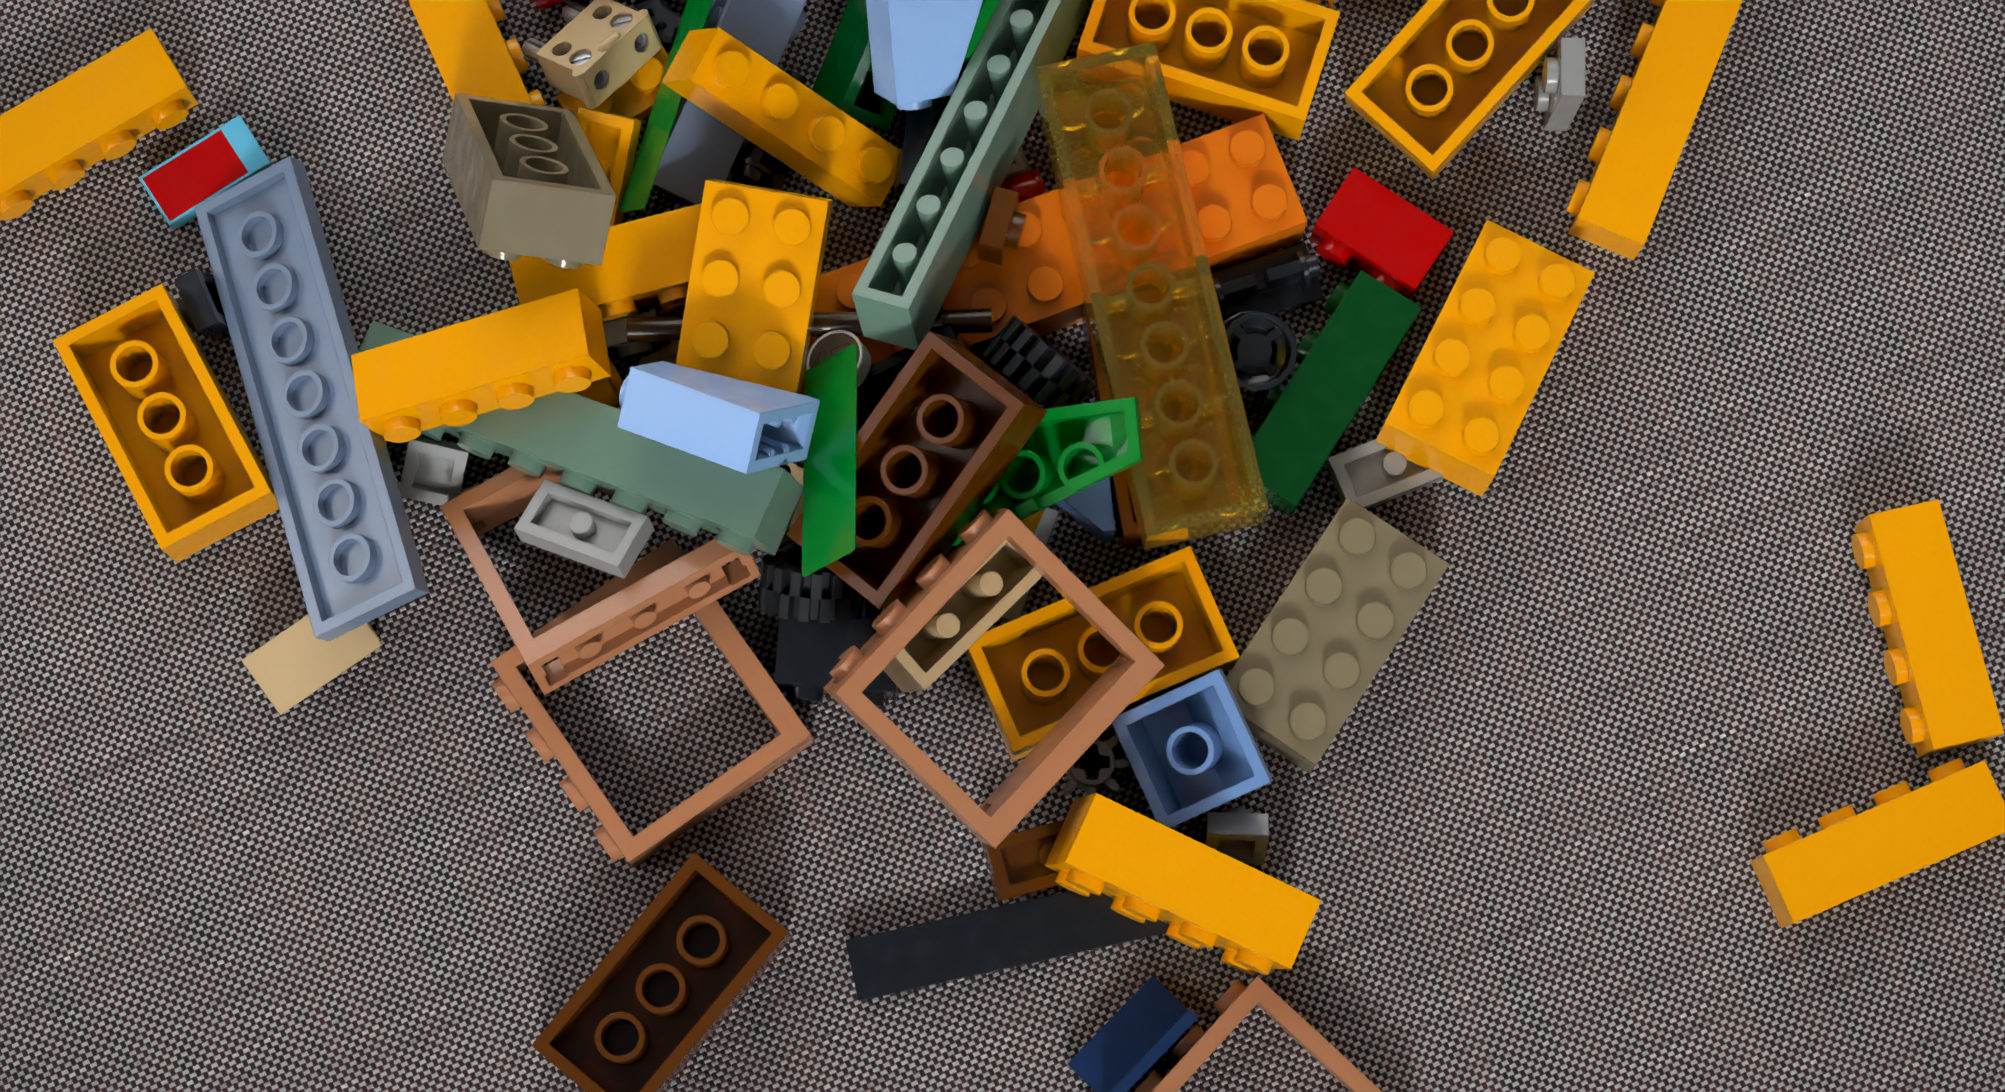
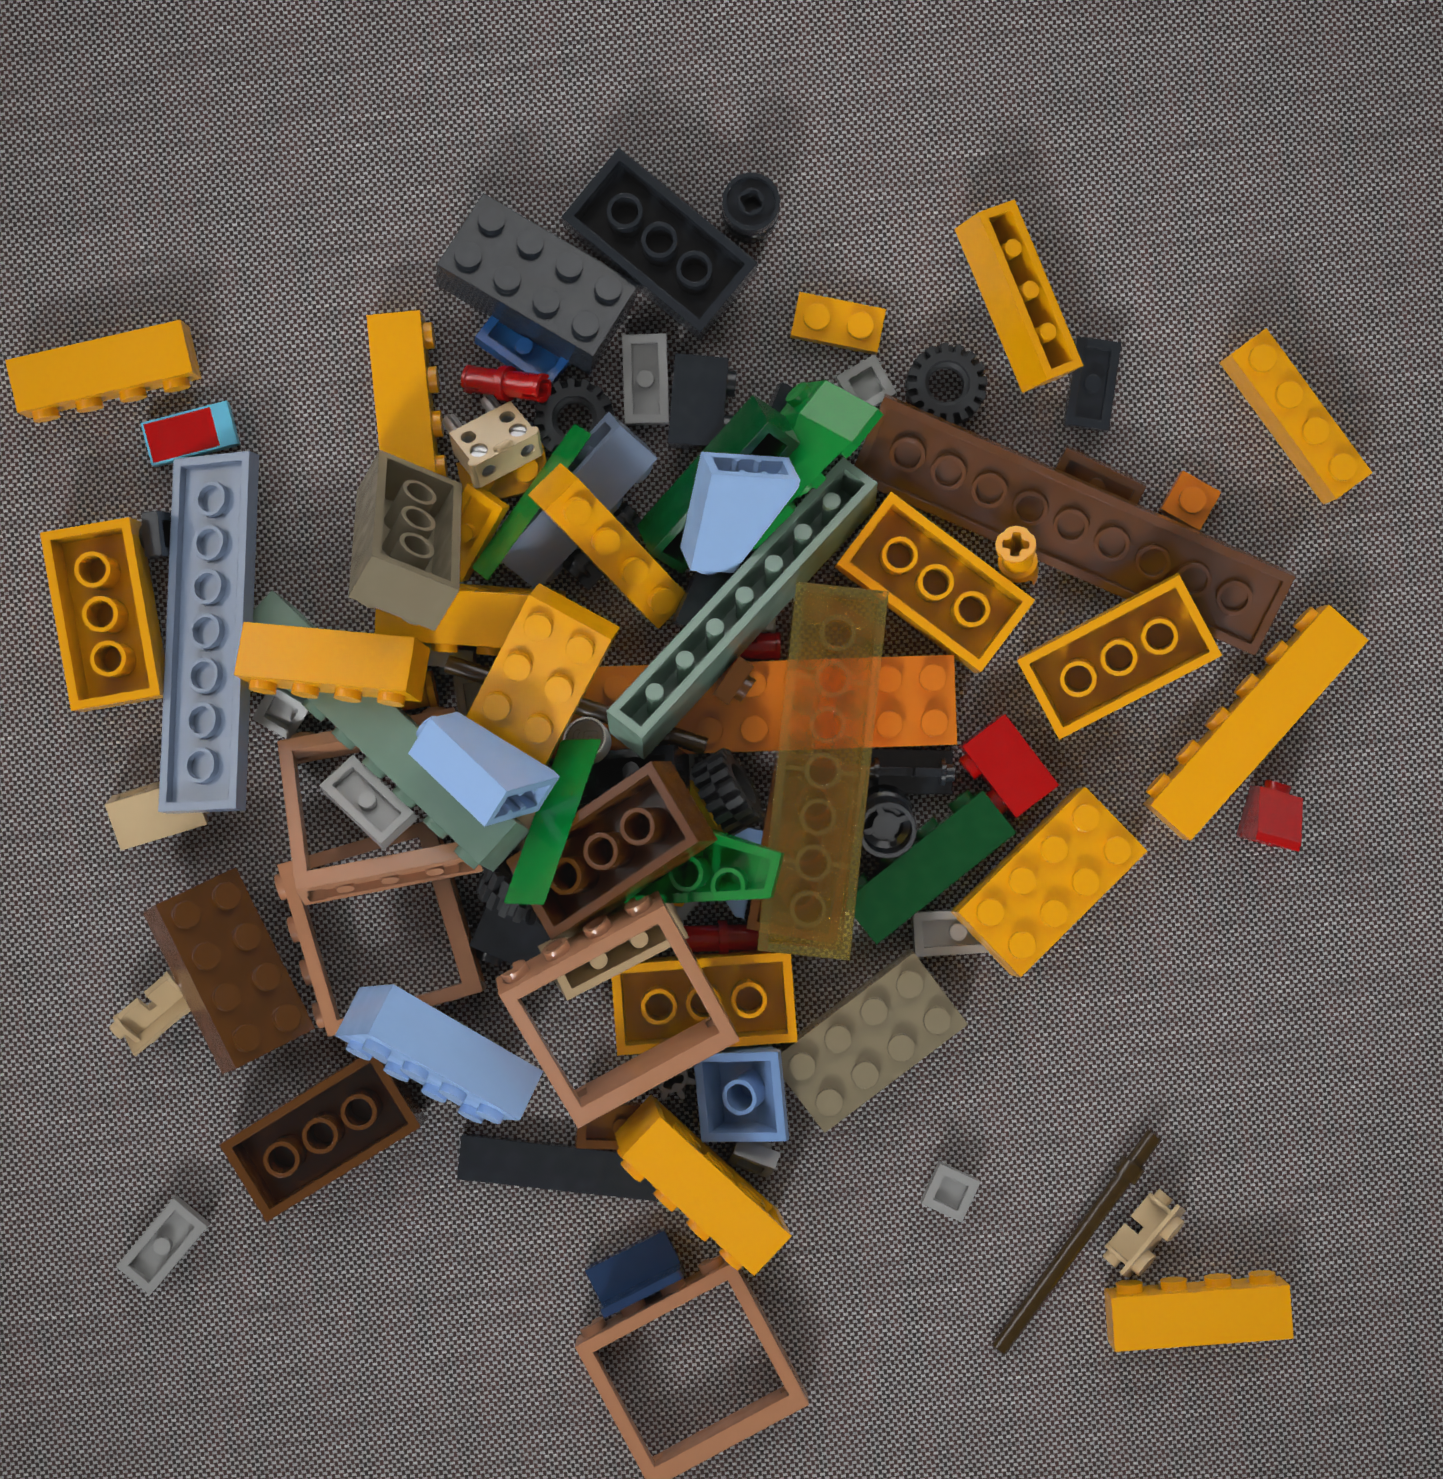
camera: 20 degrees right, 10 degrees up
(380, 934) = (145, 1023): none -> tan hinge
(470, 819) = (228, 970): none -> reddish brown brick
(781, 821) = (438, 1054): none -> light blue brick
(1099, 567) = (721, 937): none -> red pin
(1505, 797) = (950, 1191): none -> light grey plate
(1561, 84) = (1175, 703): light grey plate -> none
(1722, 695) = (1128, 1172): none -> dark brown bar
(1735, 188) = (1272, 816): none -> red slope
(1773, 790) = (1136, 1249): none -> tan hinge
(1926, 628) = (1286, 1175): light orange brick -> none

